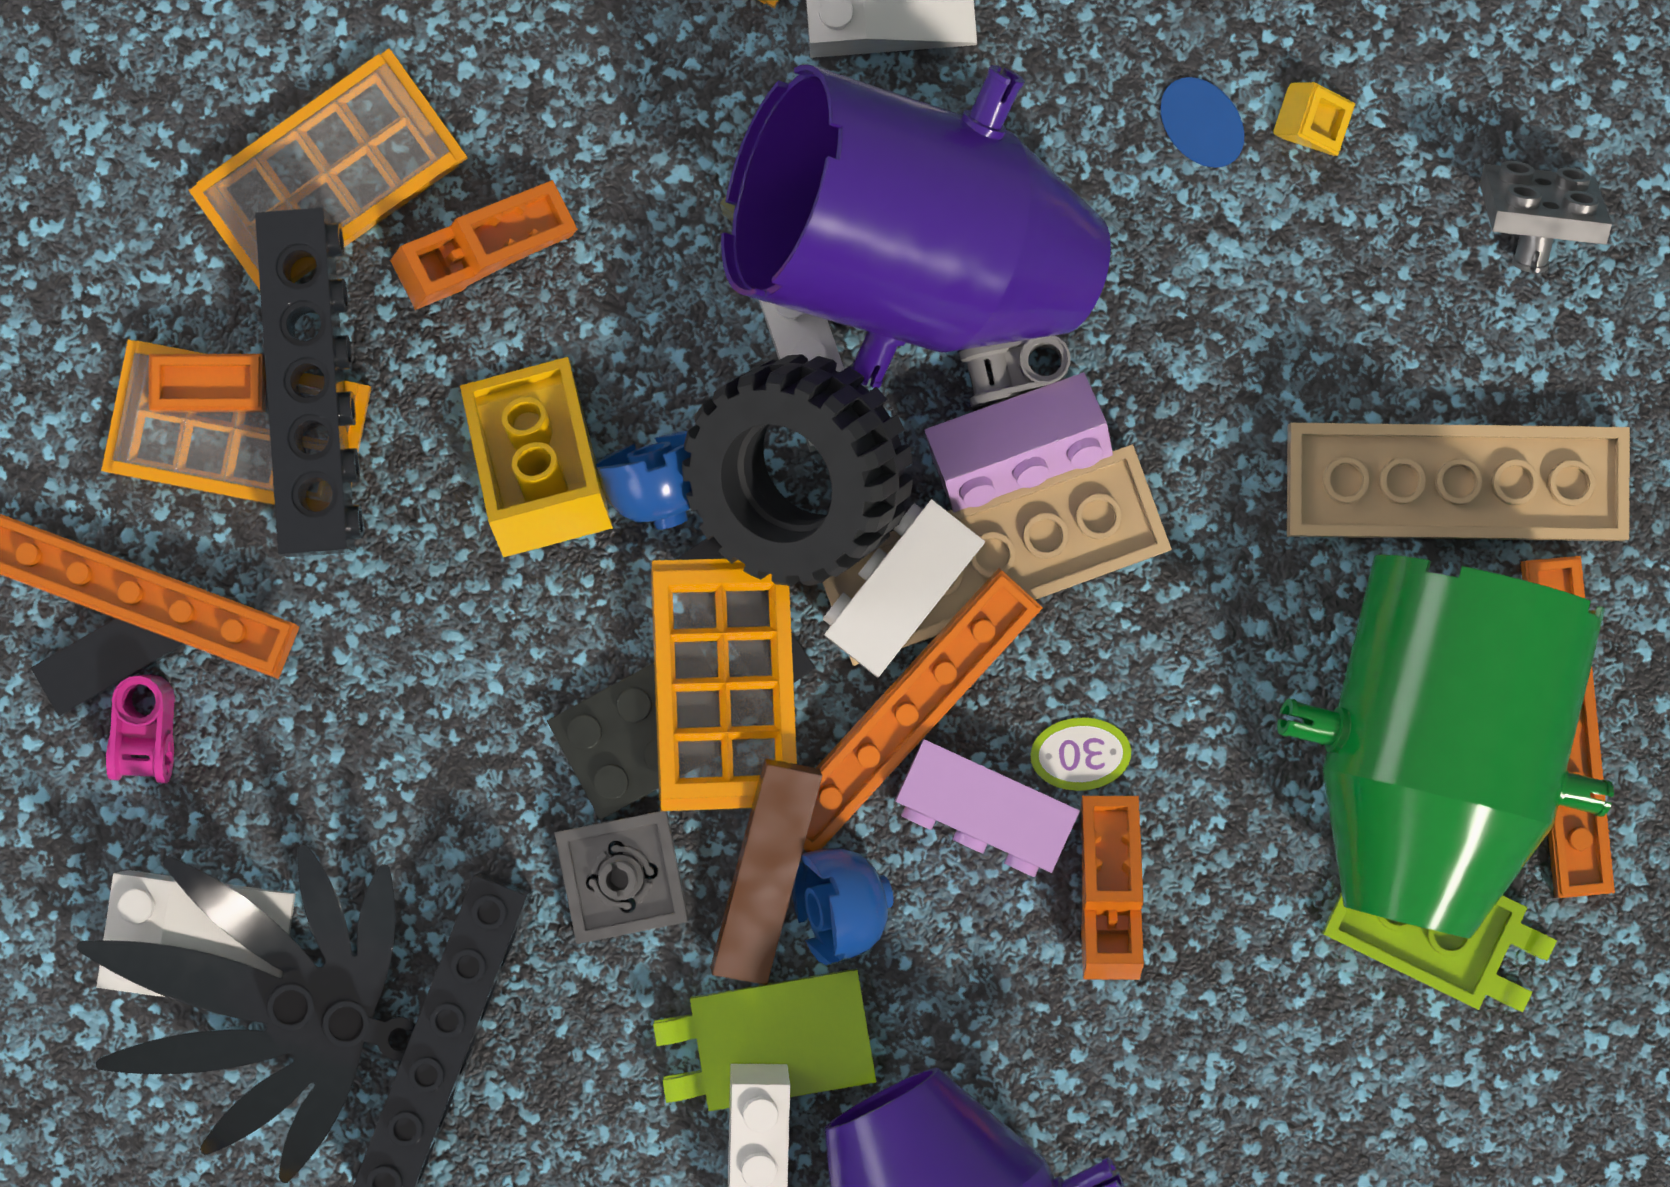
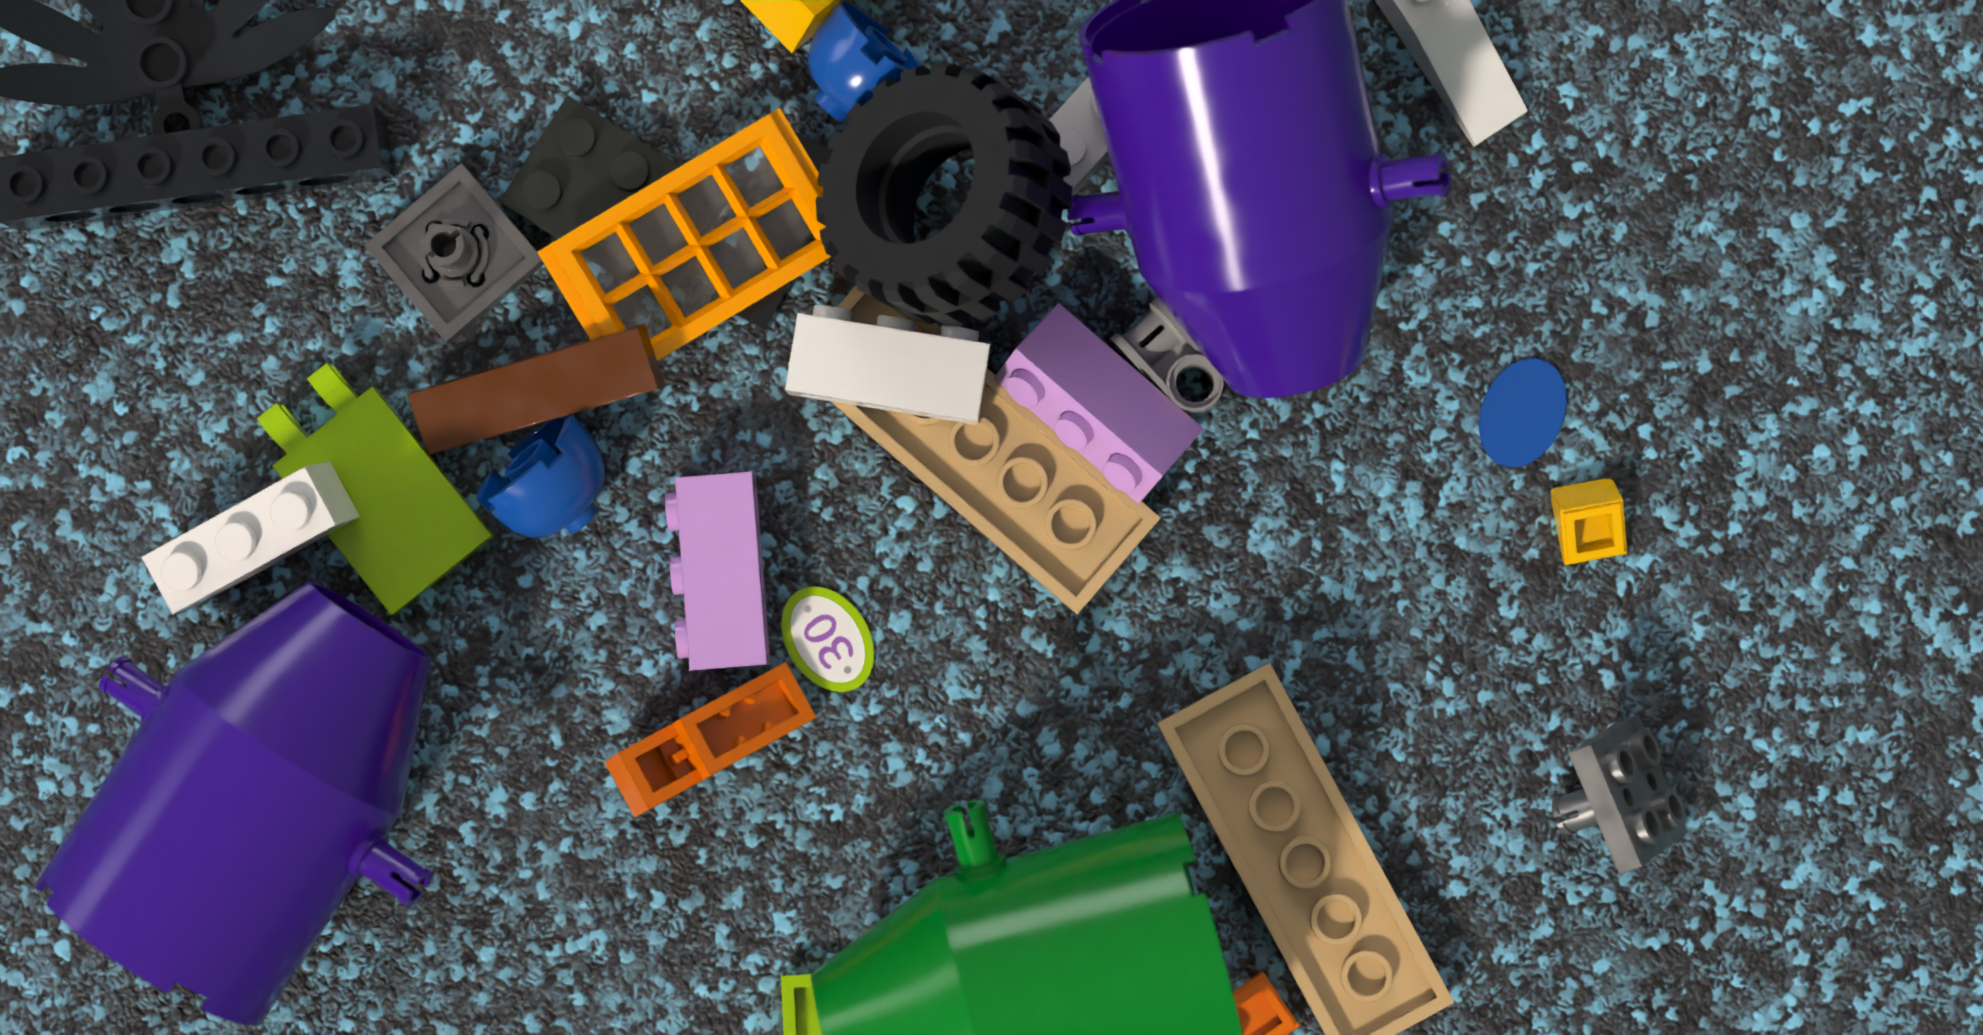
camera: 60 degrees right, 0 degrees up
(917, 702) = (783, 446): orange tile -> none

